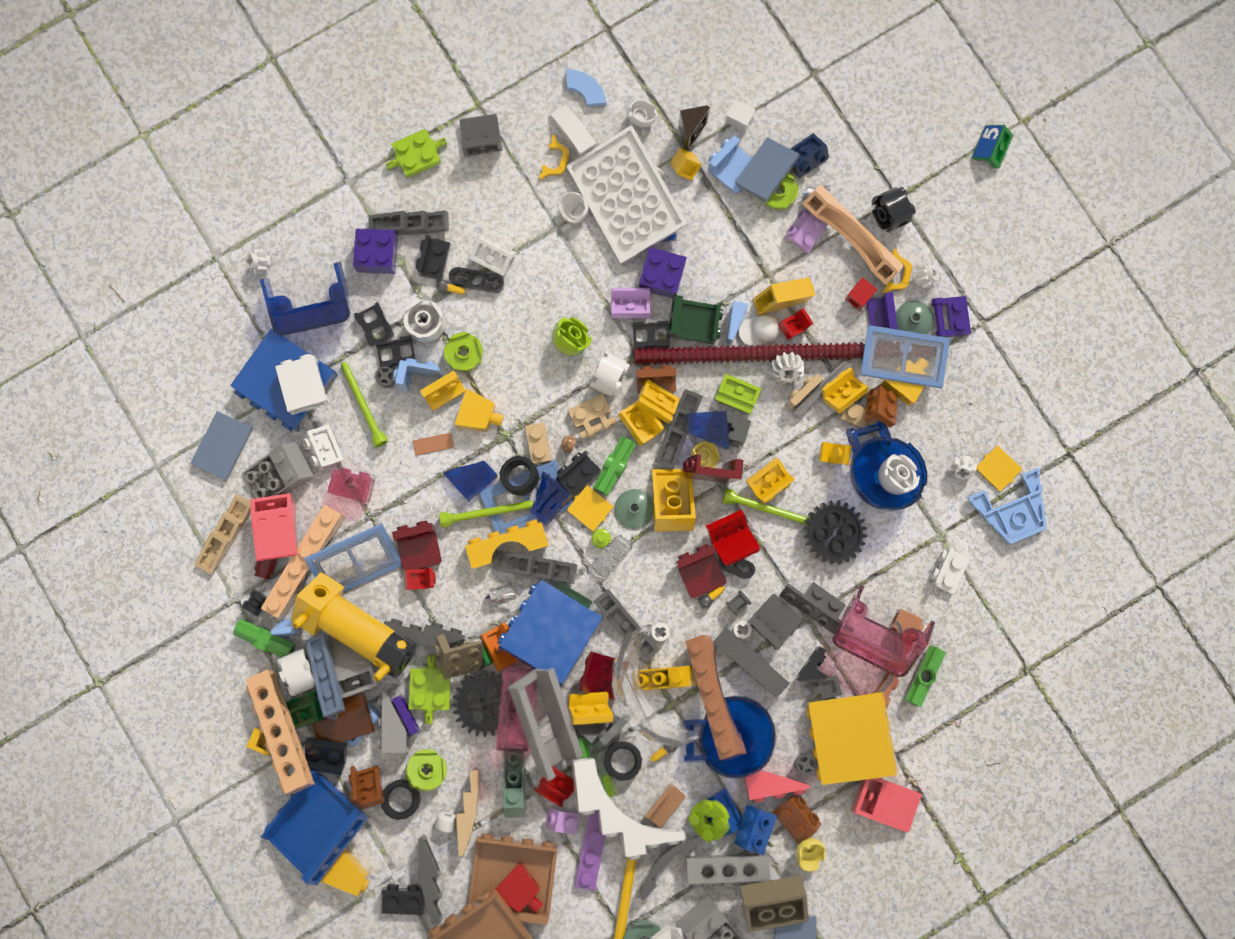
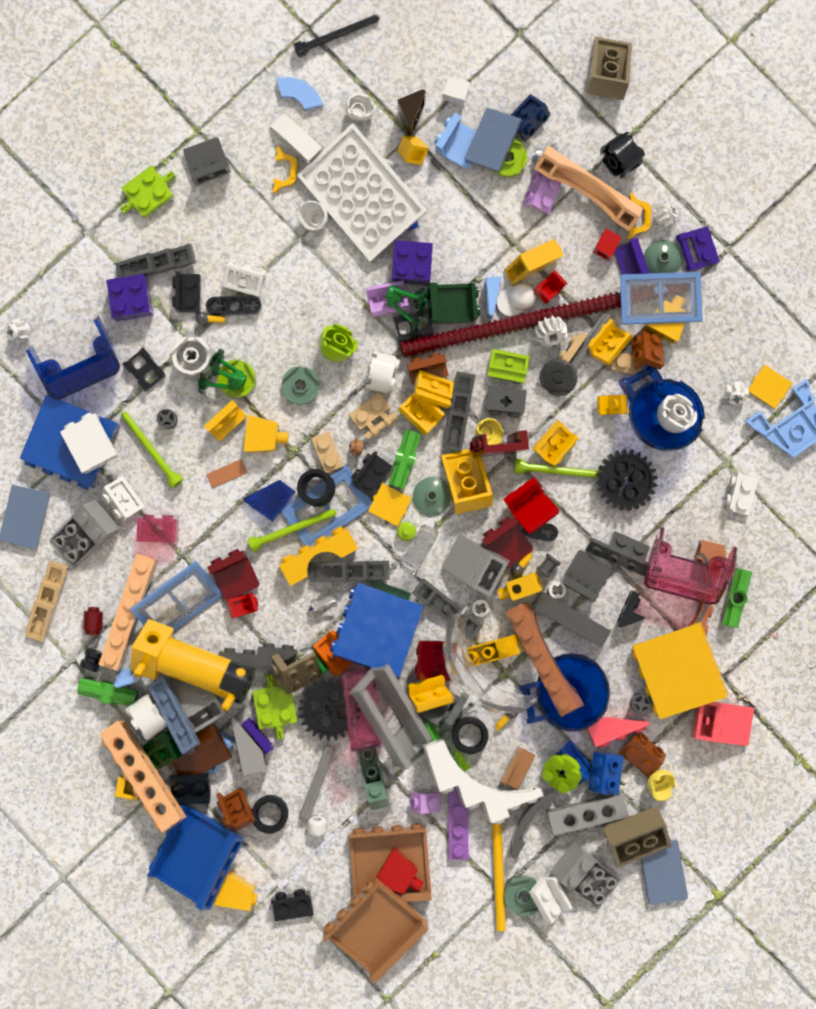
camera: 15 degrees left, 5 degrees up
(274, 527) = (93, 585): coral slope -> none
(395, 346) = (169, 386): black piece -> none
(406, 368) = (184, 414): light blue bracket -> none
(428, 871) = (310, 874): dark grey slope -> none
(434, 762) = (296, 789): lime plate -> none
(455, 777) = (317, 782): none -> light grey axle
(463, 351) = (236, 379): none -> plant
(466, 819) = (335, 820): tan slope -> none
(524, 382) = (300, 396): none -> sand green plate
(549, 499) = (349, 504): clear blue wing -> none
(557, 788) = (415, 773): red plate -> none
(598, 45) = (302, 48): none -> black piece
(639, 300) = (420, 297): none -> plant
(664, 586) = (475, 565): none -> light grey slope
(710, 427) = (488, 404): clear blue wing -> none
(715, 618) = (529, 584): none -> yellow torso
(786, 415) = (558, 377): none -> dark grey tile
(827, 687) = (646, 627): dark grey plate -> none
(896, 124) = (609, 68): none -> dark tan slope
(993, 145) = (706, 70): panel -> none

